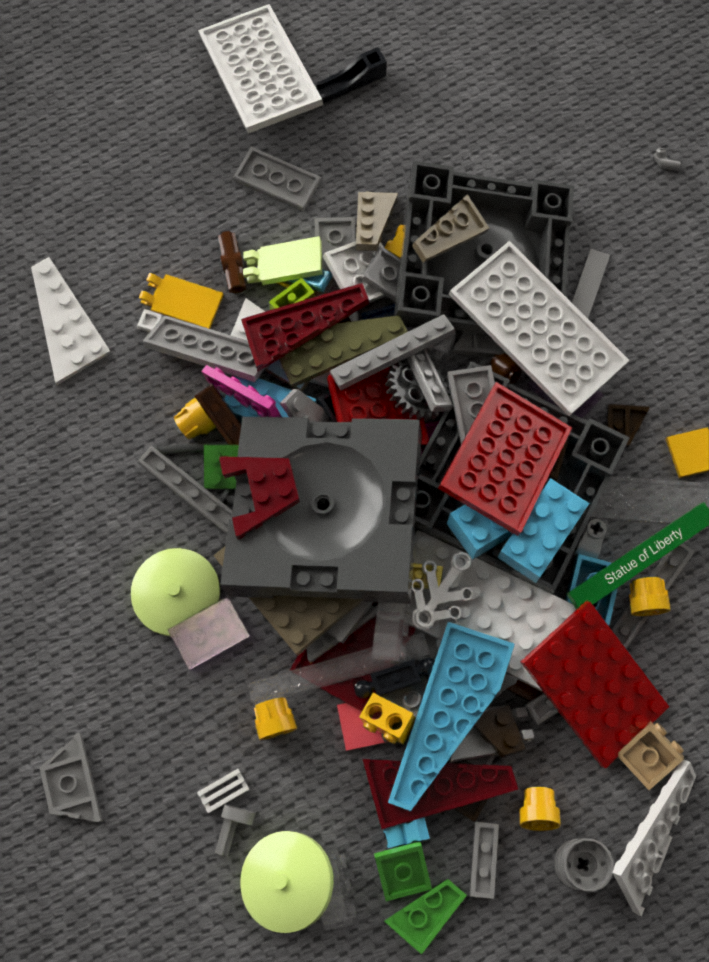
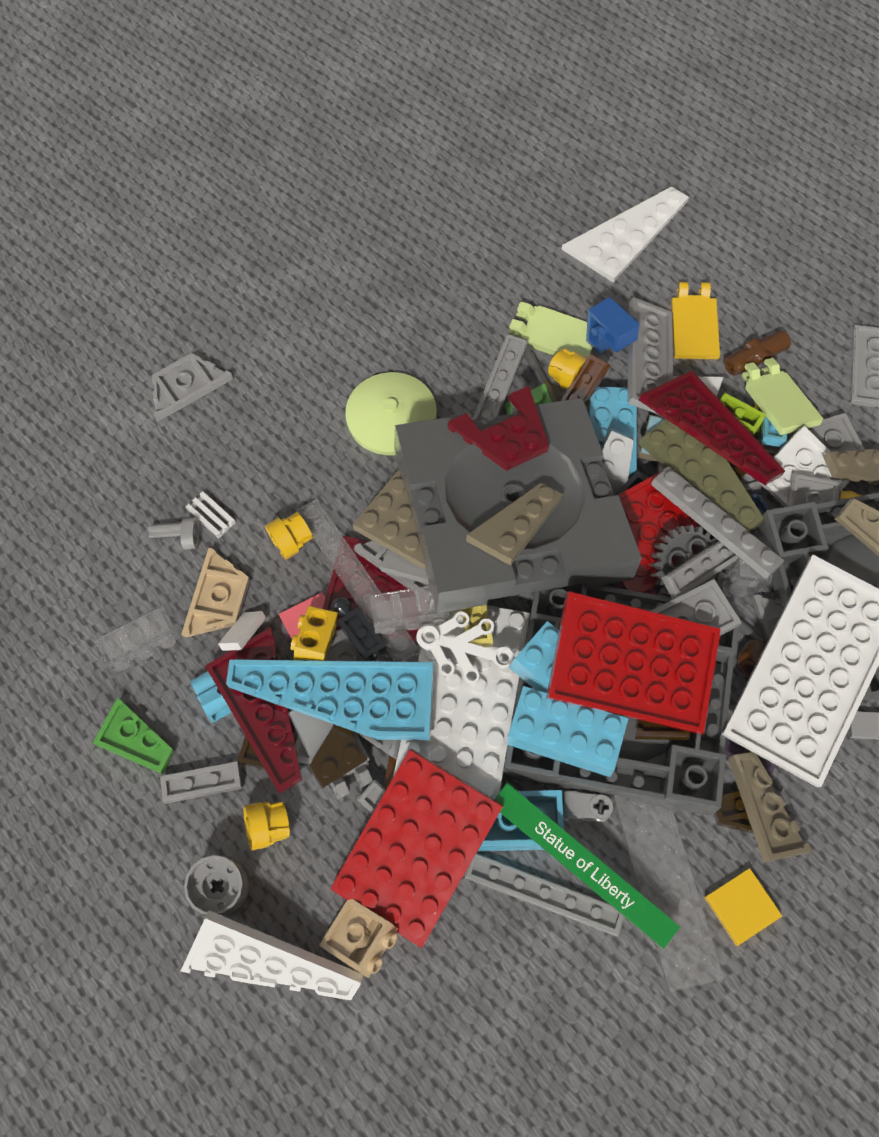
camera: 75 degrees right, 5 degrees down
(146, 420) = (550, 330): none -> yellowish green tile
(148, 320) = (661, 300): white tile -> none
(171, 368) = (610, 327): none -> blue brick
(208, 633) = (358, 451): plate -> none
(247, 396) = (608, 395): dark pink wing -> none
(286, 882) = (134, 593): yellowish green dish -> none
(310, 803) = (216, 597): none -> tan wing
(356, 786) = (242, 631): none -> white tile
(359, 509) = (514, 526): none -> dark tan wing
(403, 871) = (169, 701): bright green plate -> none
(628, 407) = (770, 823): none -> dark tan wing
(649, 597) = (538, 886): yellow piece -> none

